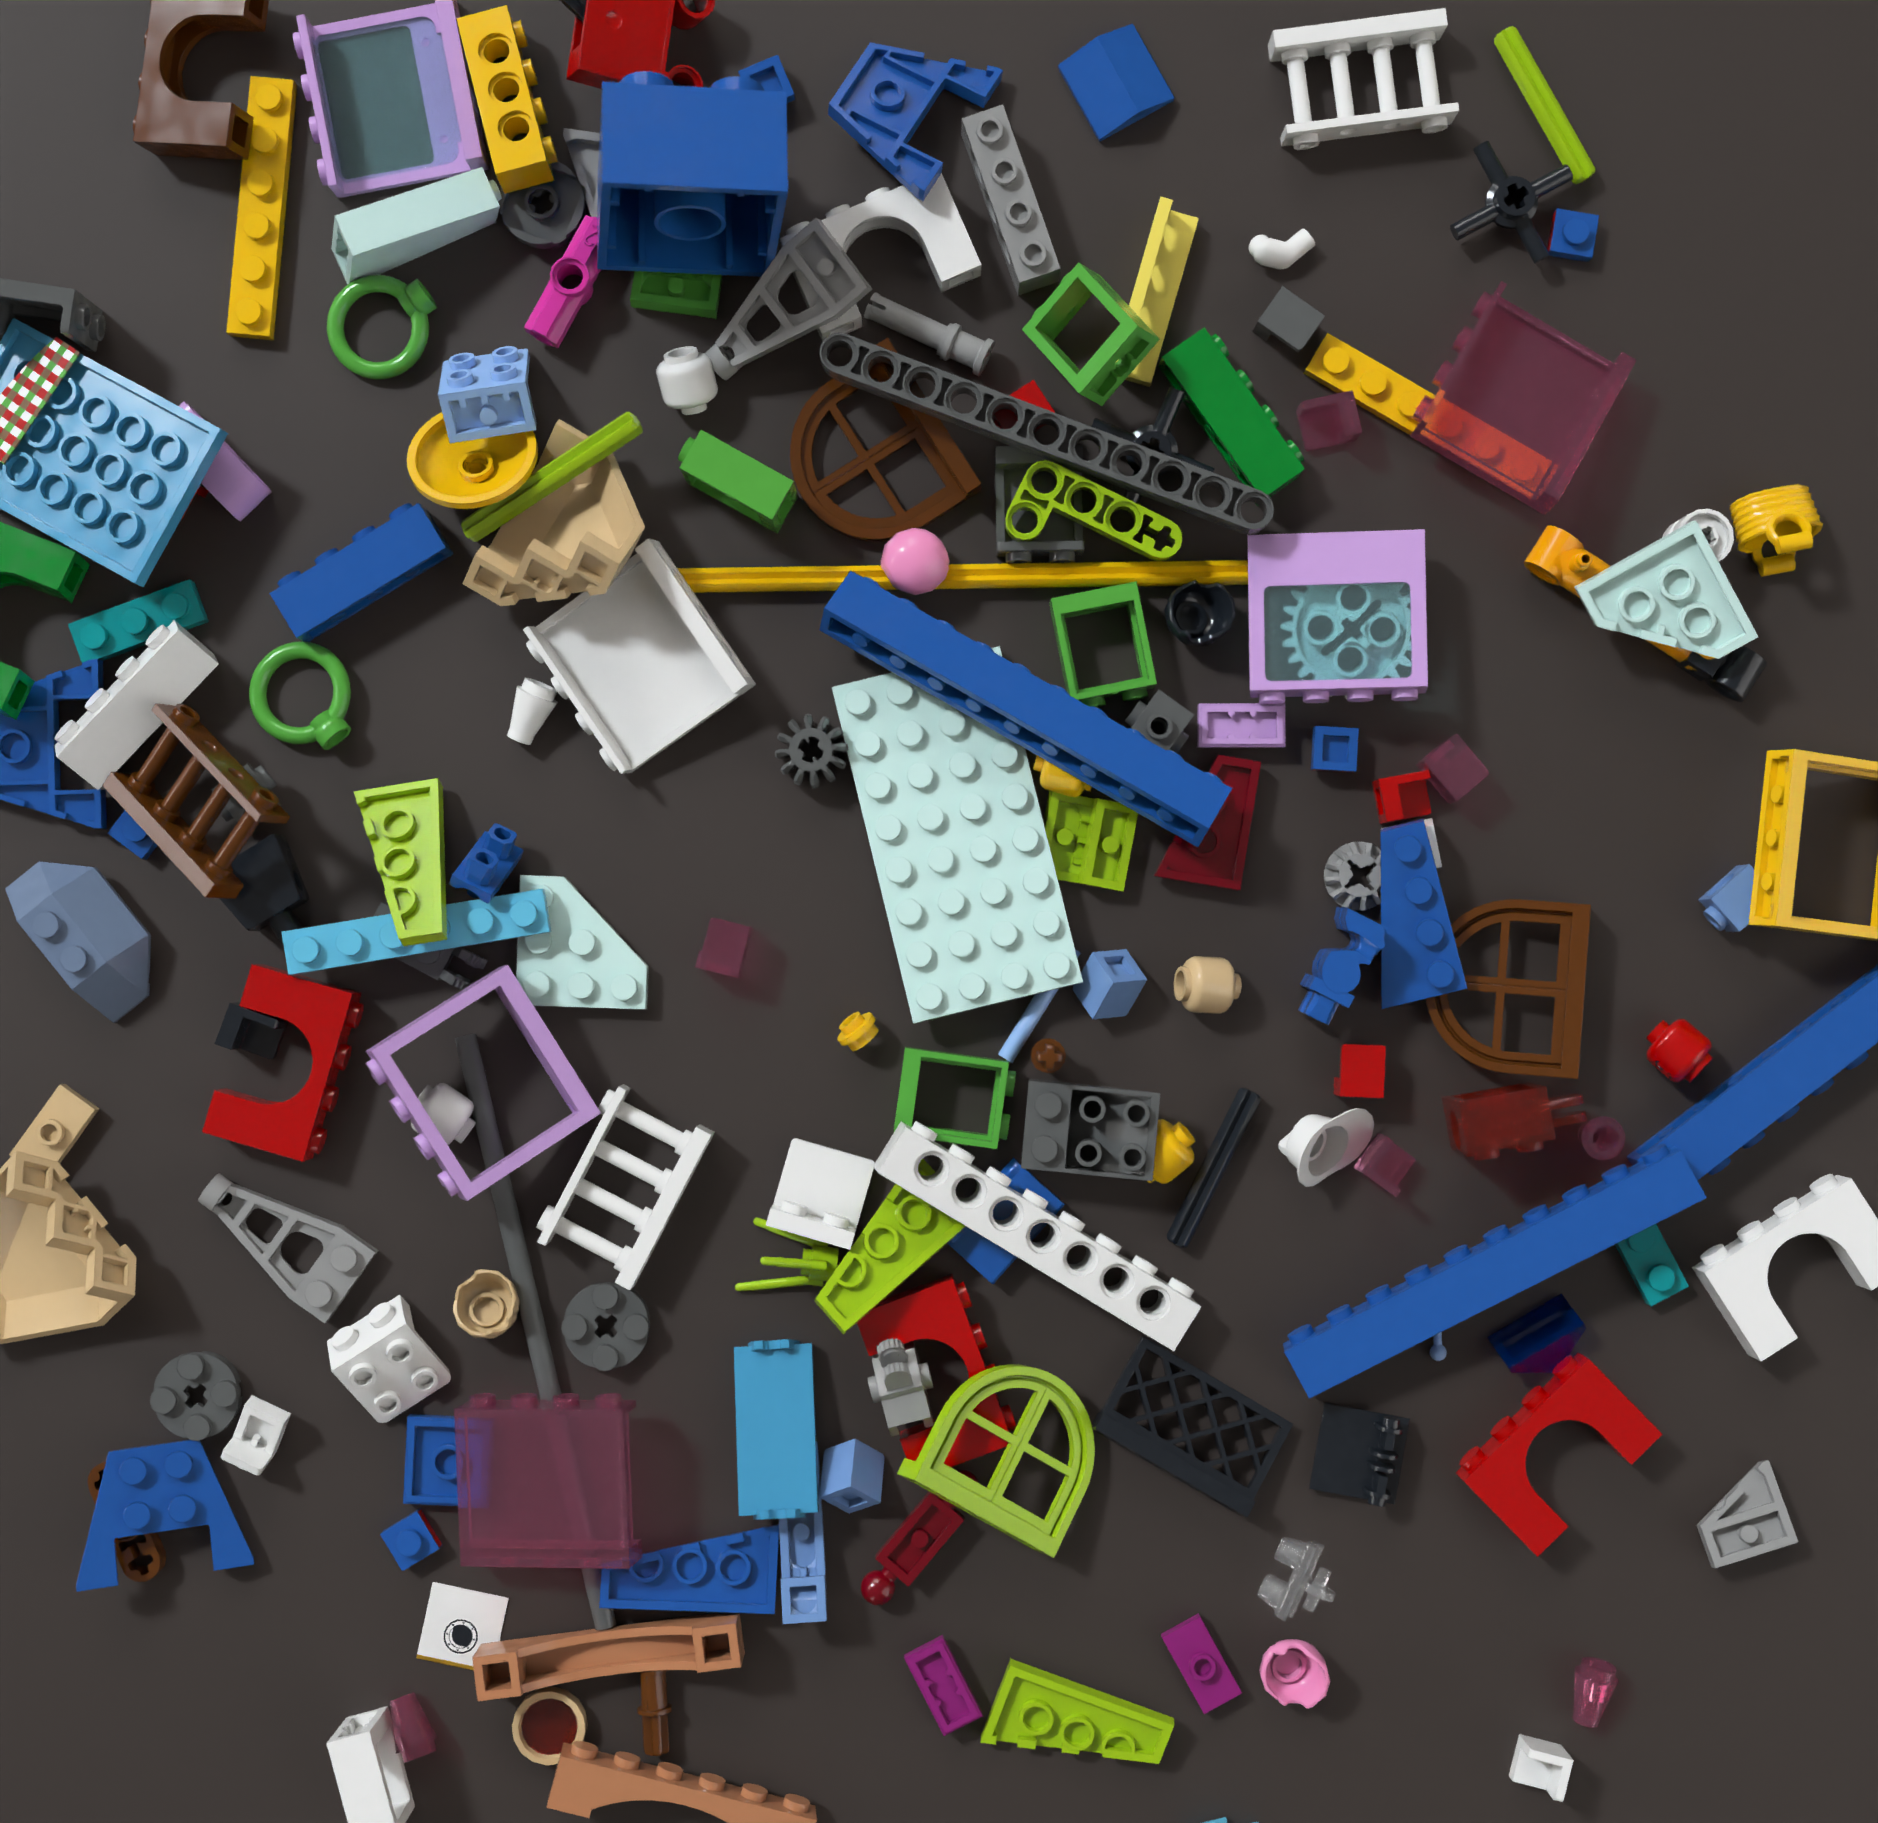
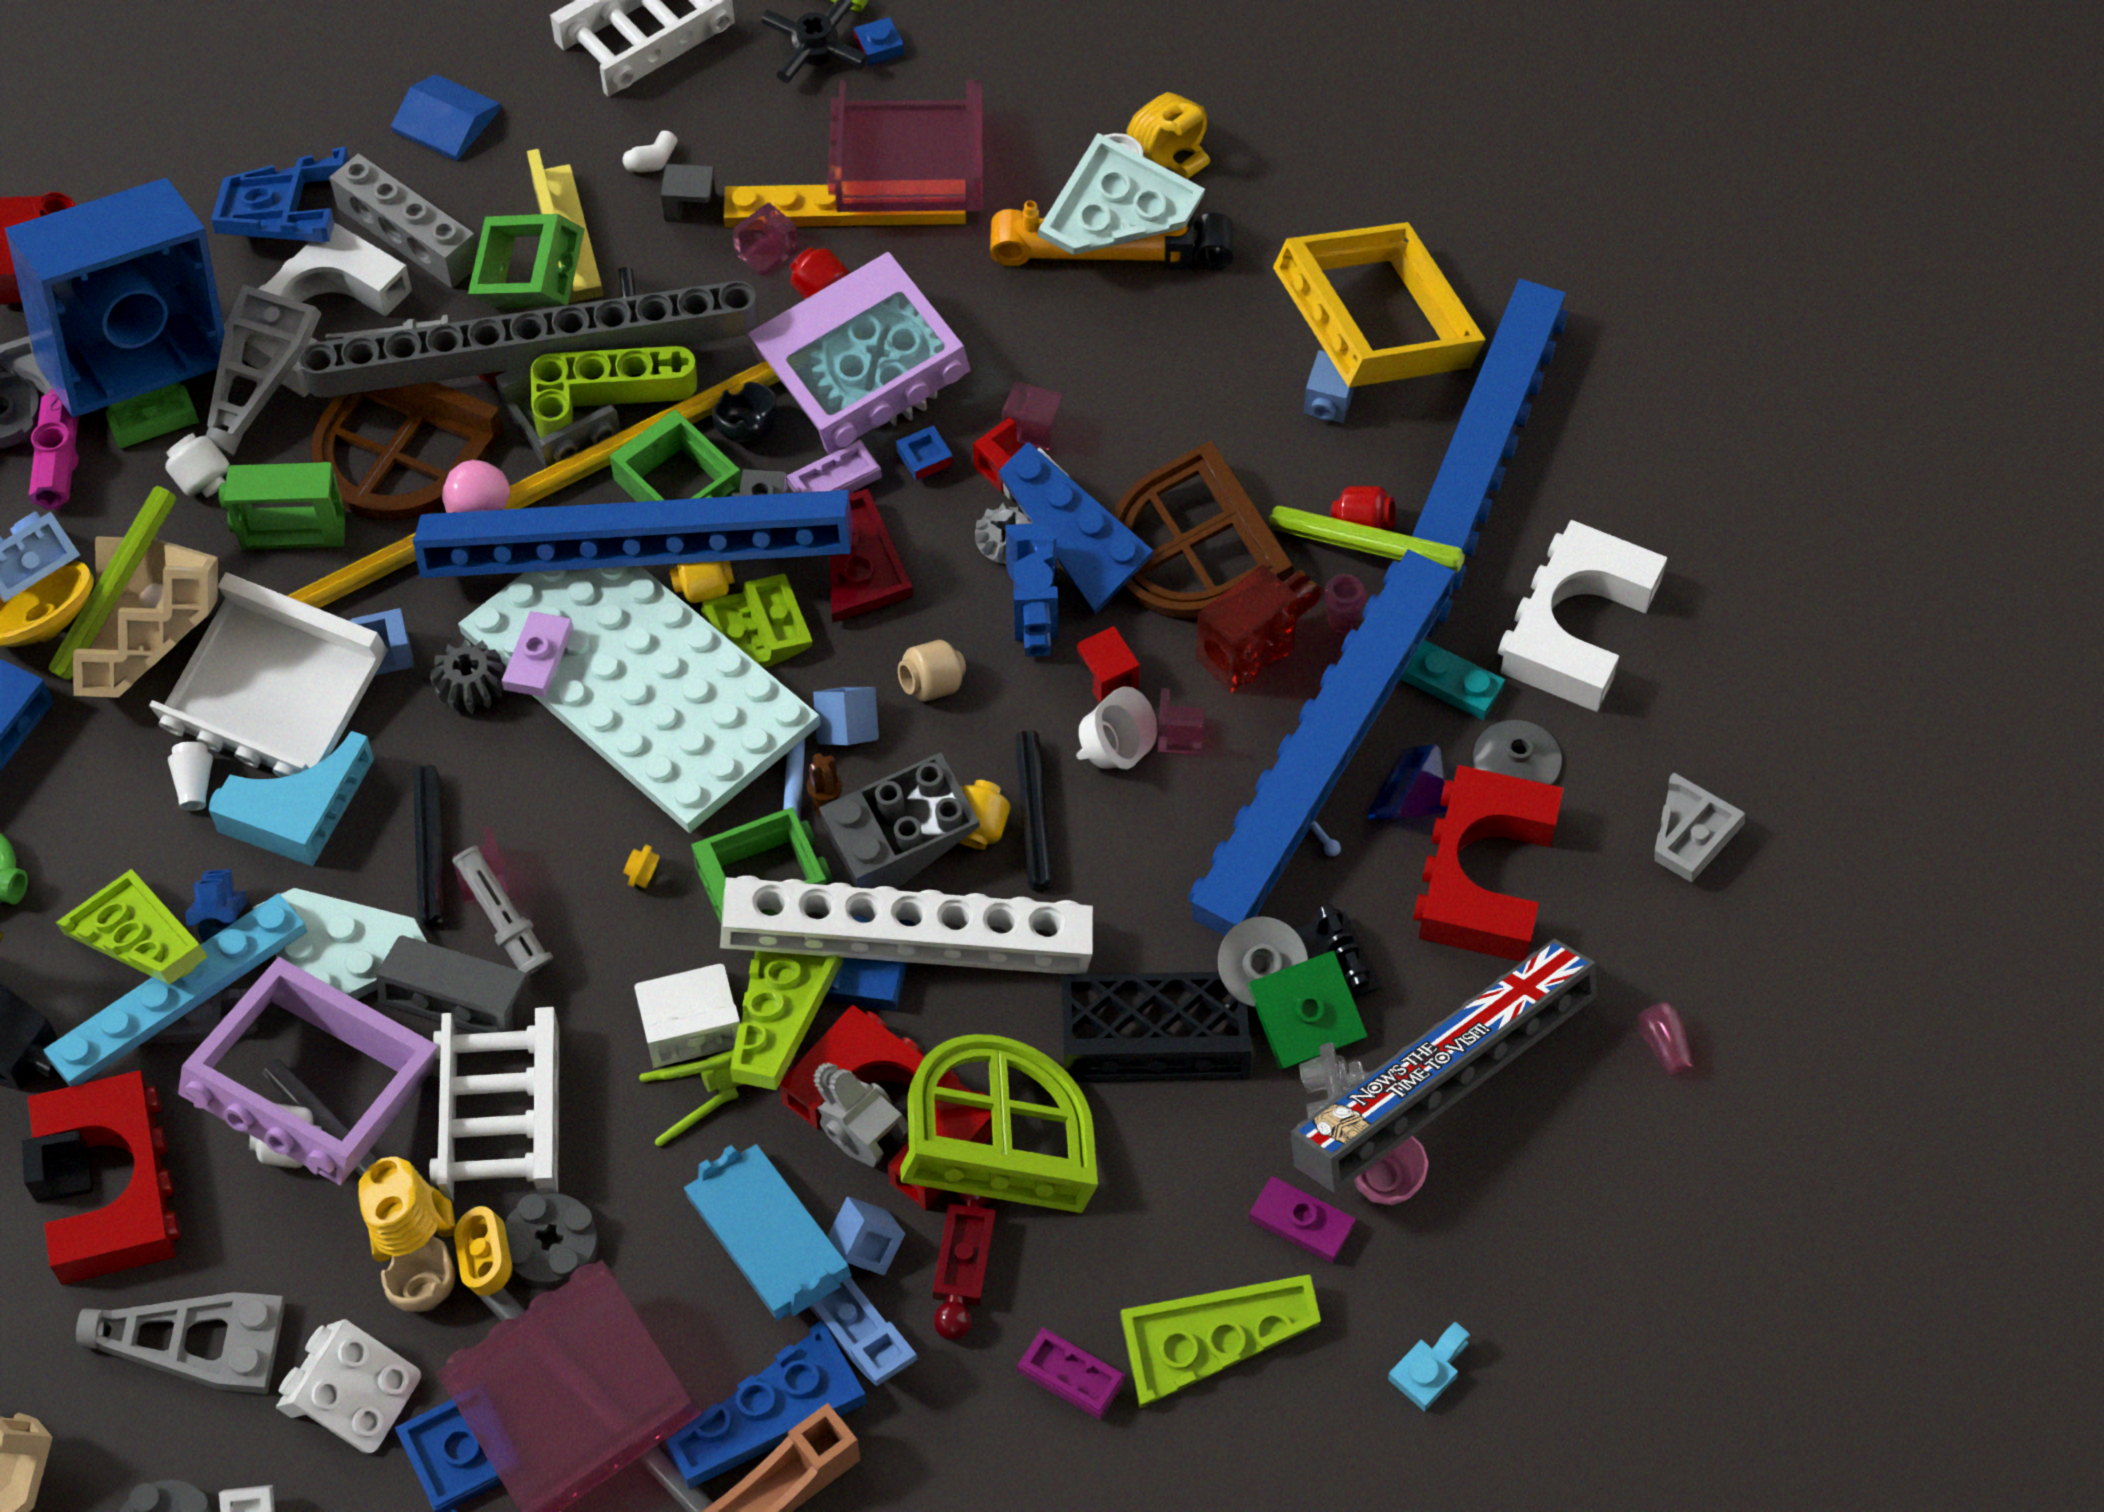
camera: 25 degrees left, 30 degrees down
(495, 1250) = (401, 1209): none -> yellow piece
(542, 1320) = (482, 1251): none -> yellow plate
(597, 804) = (294, 811): none -> medium azure arch
(644, 1052) = (440, 980): none -> dark grey panel
(695, 897) = (428, 845): none -> black axle
(722, 1036) = (512, 930): none -> light grey pin
(764, 668) = (394, 634): none -> medium blue panel
(878, 775) = (537, 654): none -> lavender plate
(1231, 415) = (671, 263): green brick -> none
(1311, 1450) = (1260, 938): none -> light grey dish
(1319, 1495) = (1306, 1009): none -> green plate
(1352, 498) = (815, 271): none -> red head
(1393, 1628) = (1443, 1065): none -> brick
(1541, 1766) = (1668, 1122): white panel -> none
(1632, 1347) = (1495, 753): none -> dark grey dish
(1660, 1090) = (1362, 537): none -> lime axle

